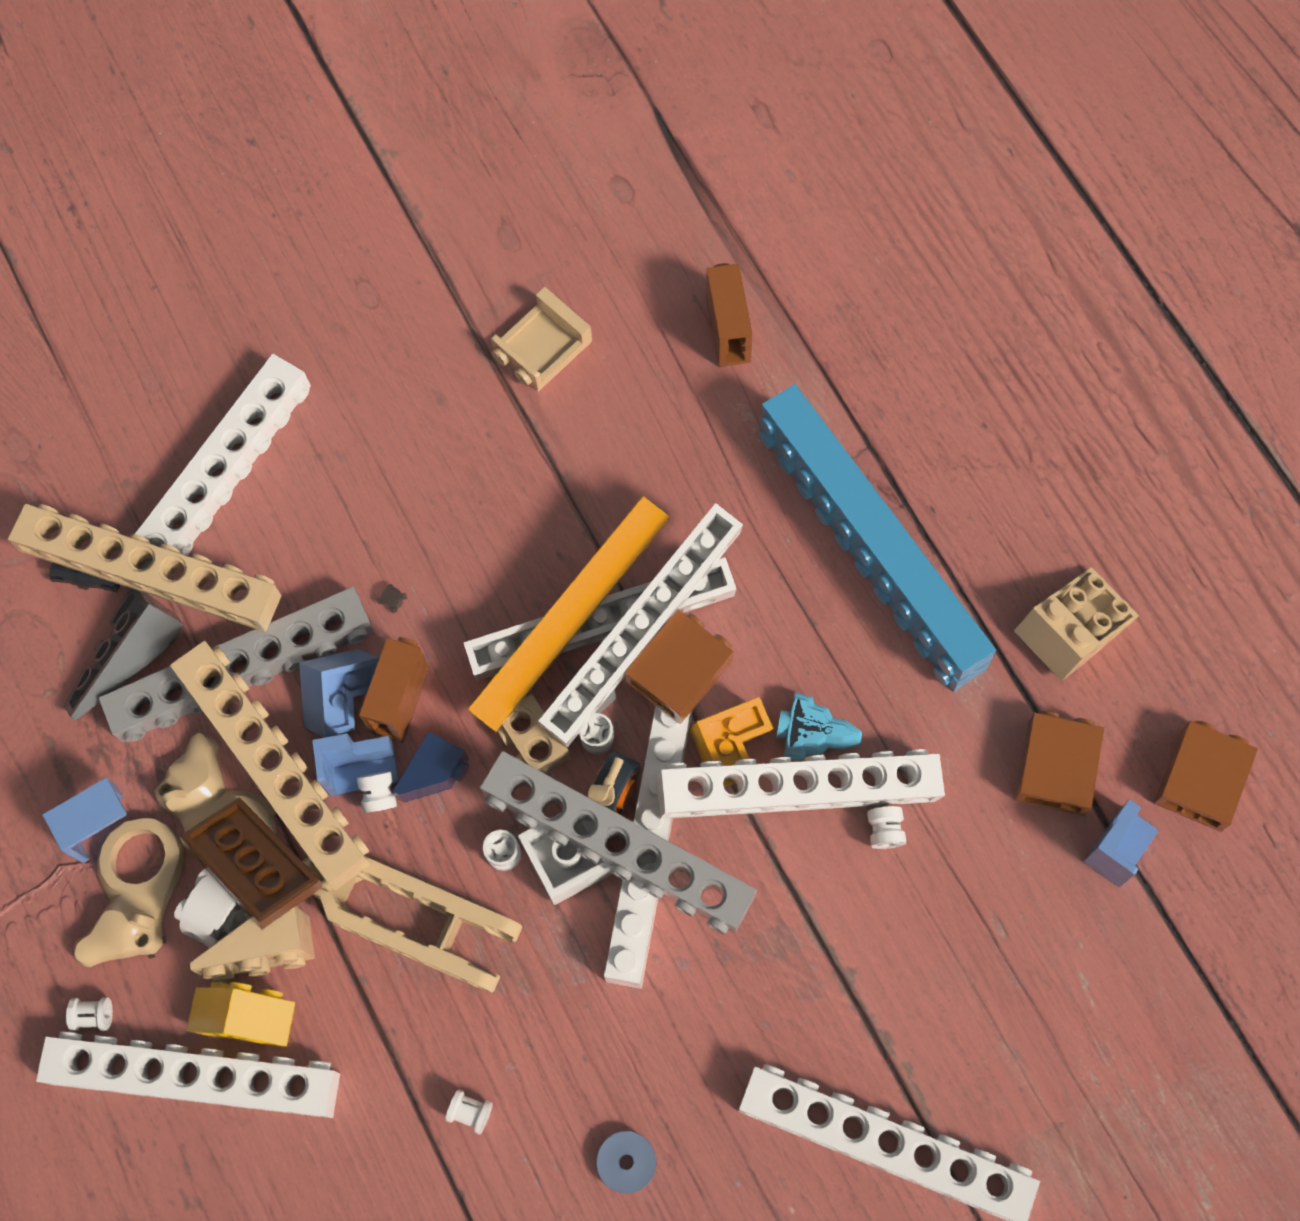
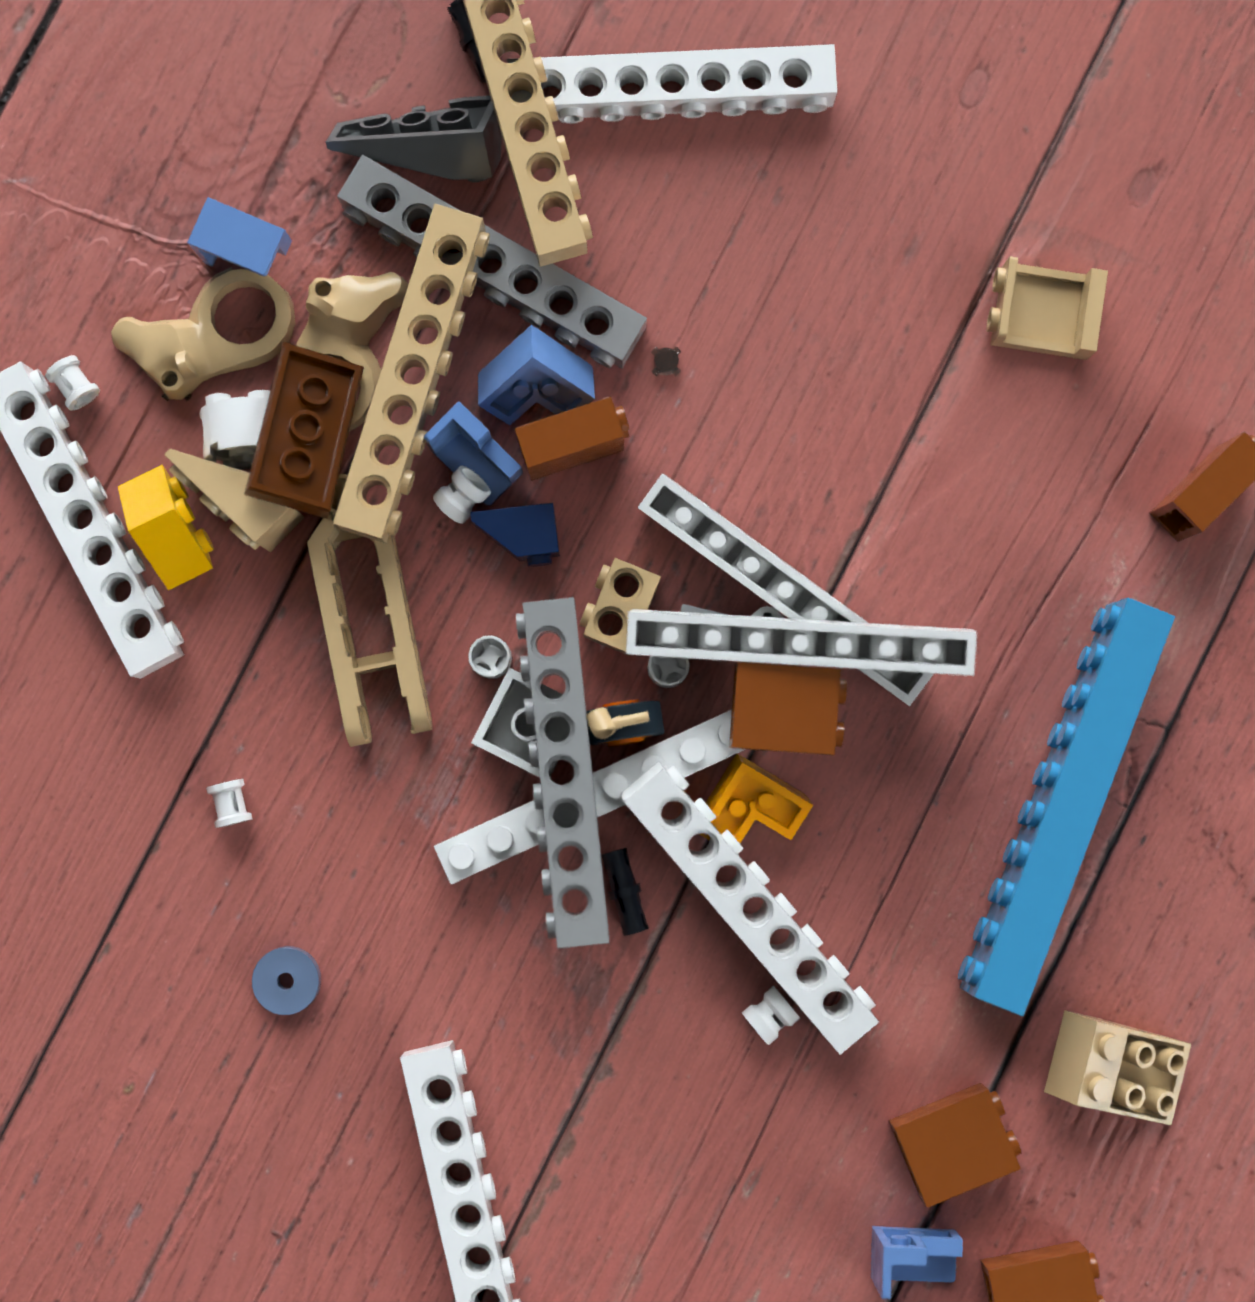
camera: 45 degrees right, 15 degrees up
(569, 614) = (766, 559): light orange tile -> none
(748, 874) = (625, 891): none -> black pin
(813, 730) = (820, 876): medium azure rock -> none

